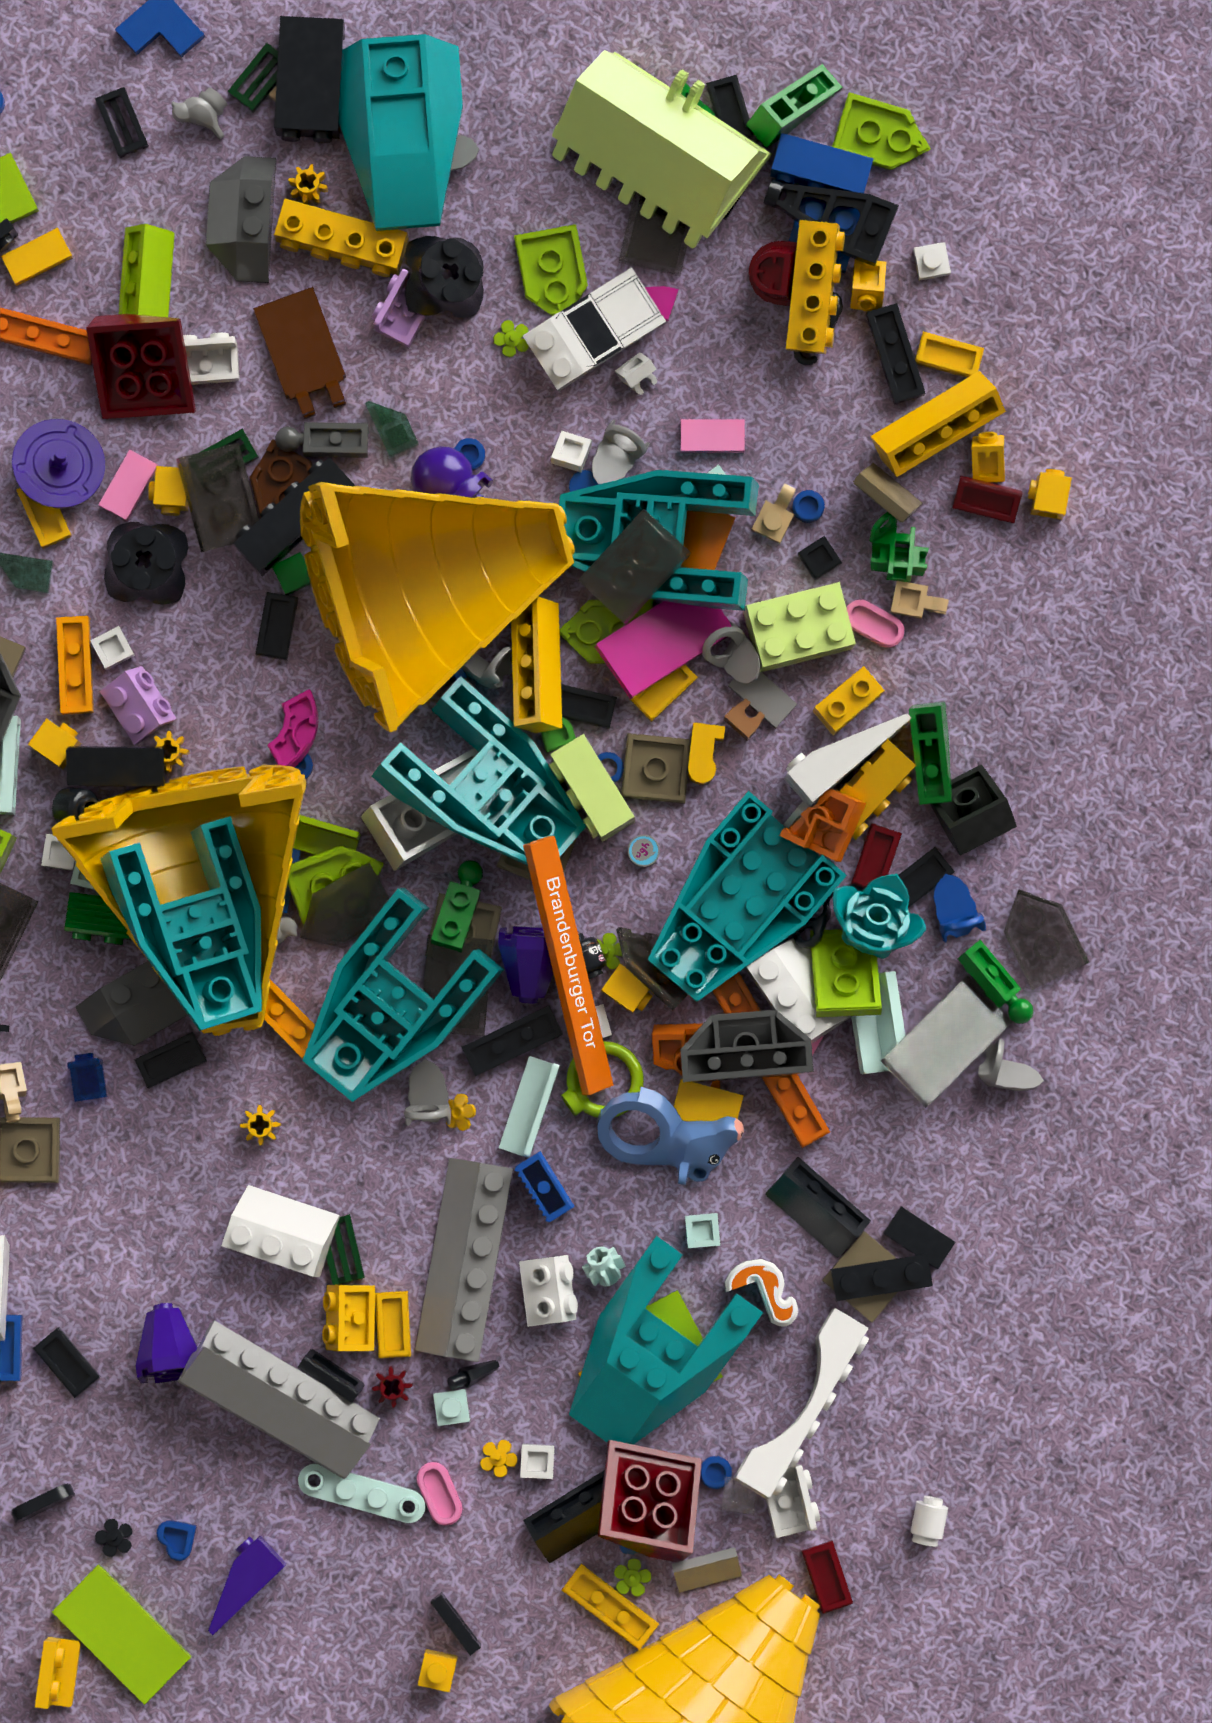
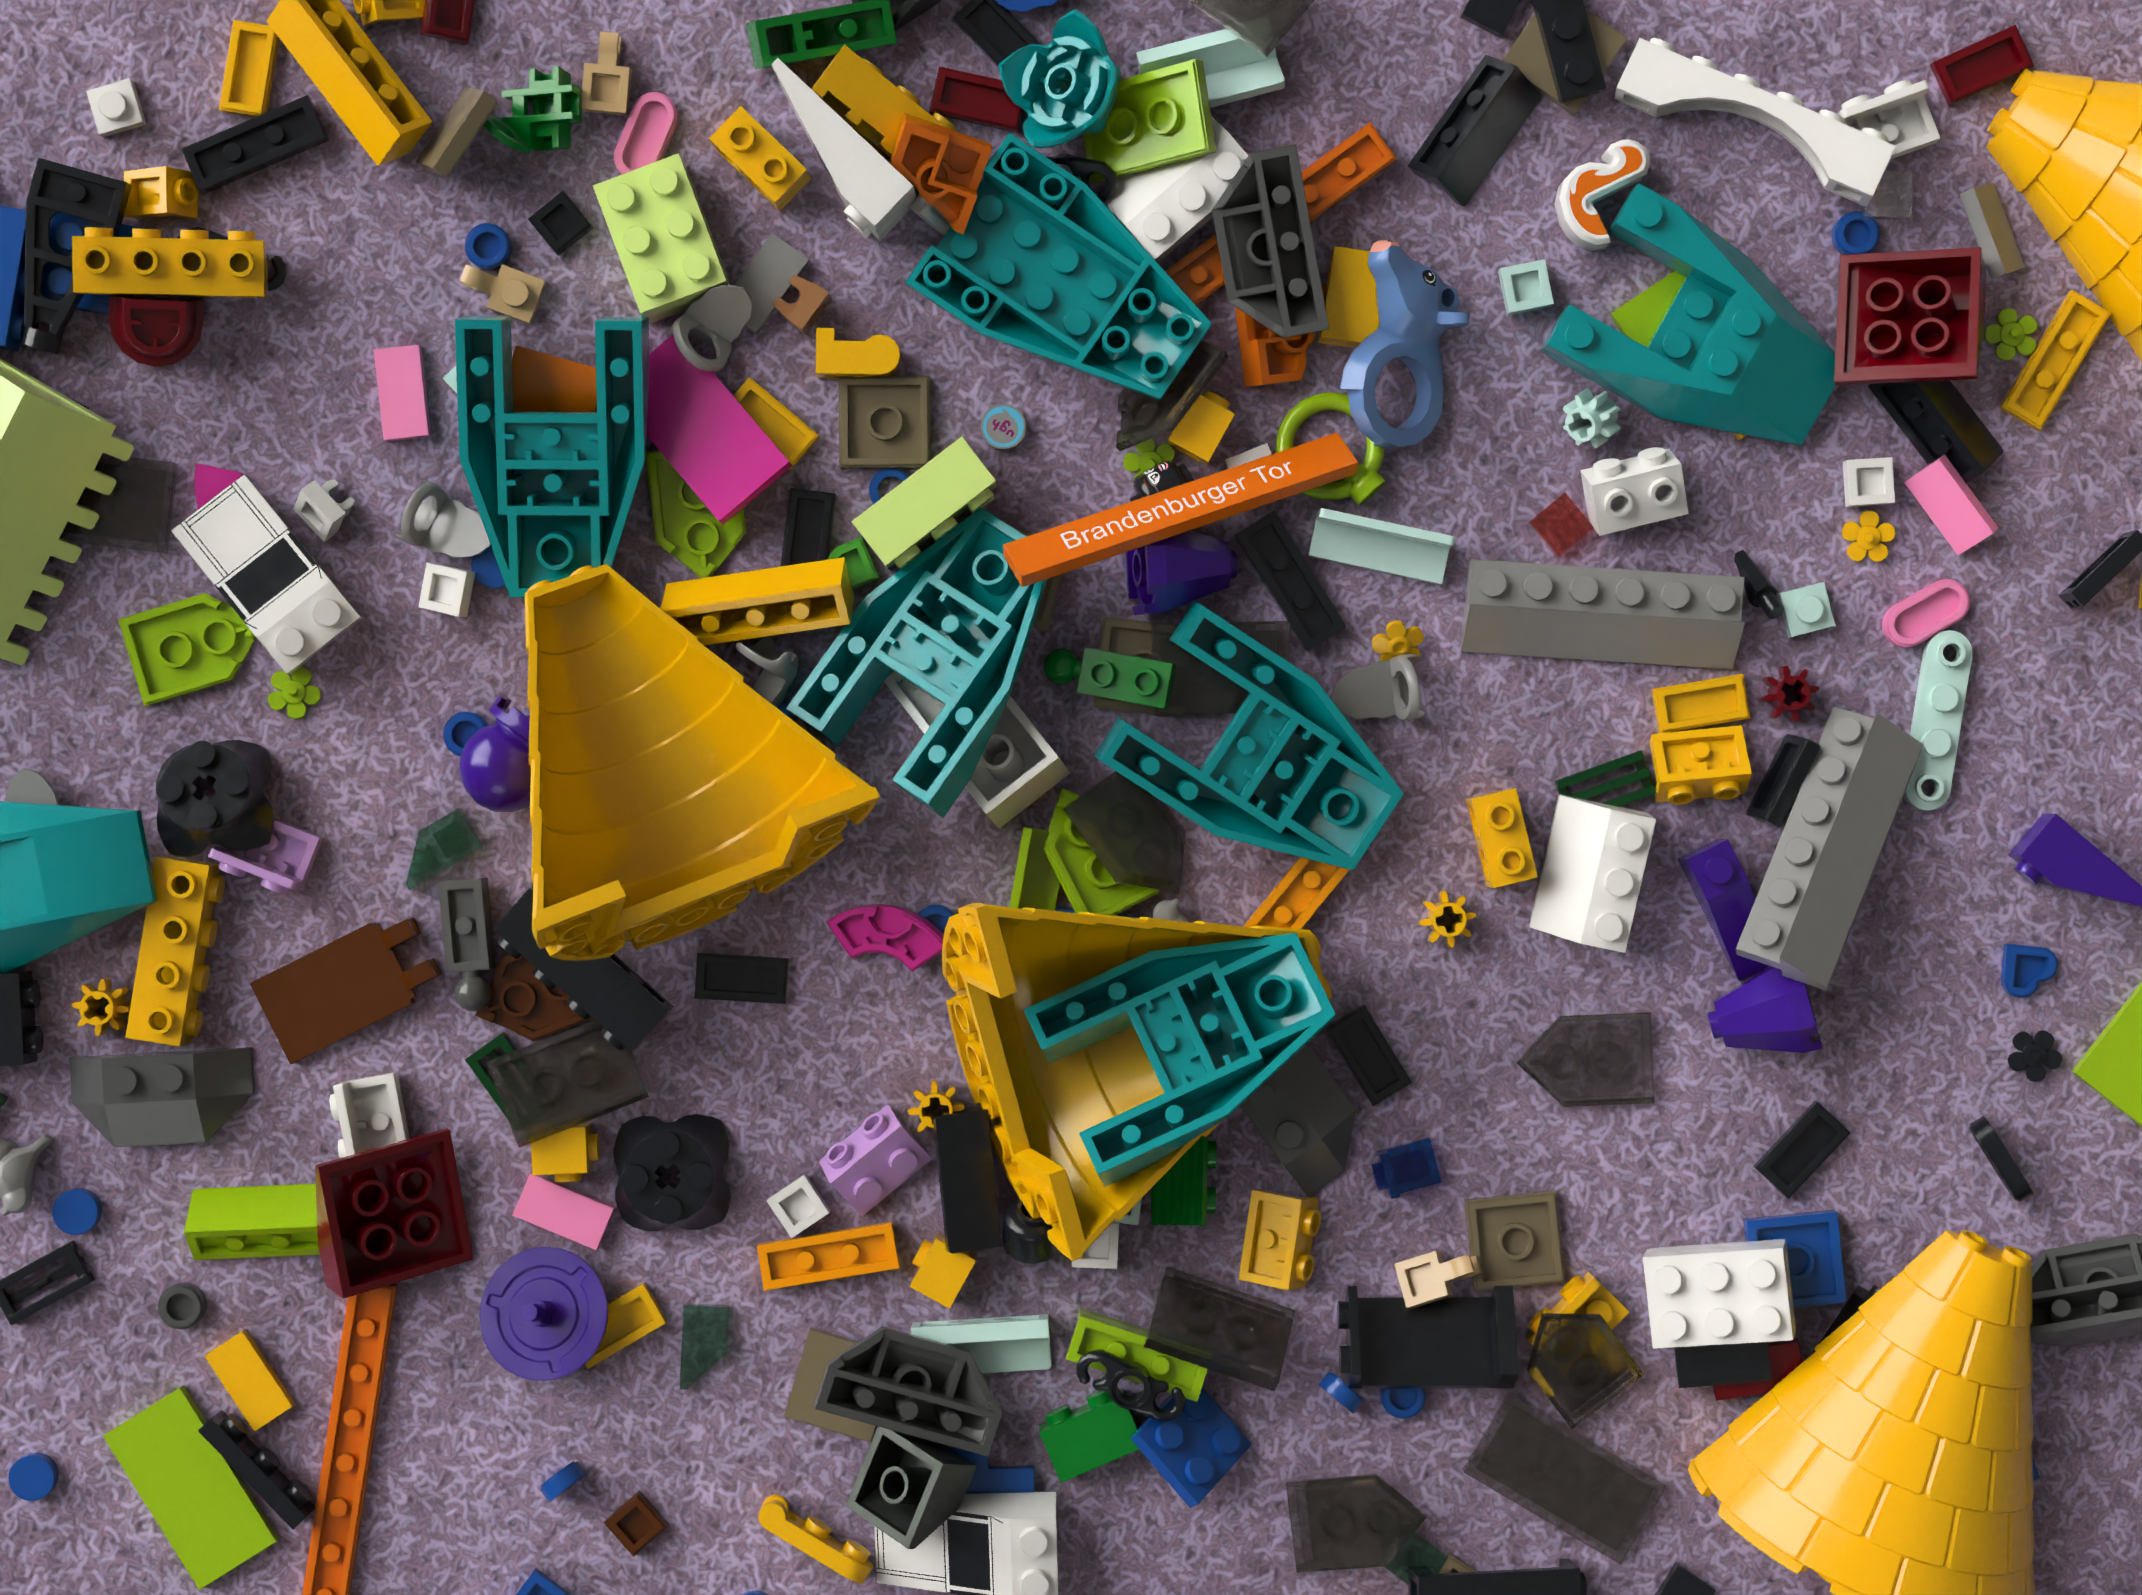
camera: 90 degrees left, 5 degrees up
(47, 982) = (1279, 1240): none -> yellow bracket
(94, 216) = (182, 1305): none -> dark grey tile
(148, 1220) = (1594, 1059): none -> clear smoke tile
(168, 151) = (77, 1211): none -> blue tile
(257, 1322) = (1724, 898): none -> dark purple slope
(292, 573) = (664, 964): green tile -> none
(313, 1169) = (1501, 838): none -> yellow brick
(514, 1518) = (1951, 505): none -> bright pink tile
(531, 1238) = (1561, 524): none -> clear red tile
(544, 1186) = (1492, 512): blue brick -> none
(634, 566) = (602, 476): clear smoke tile -> none

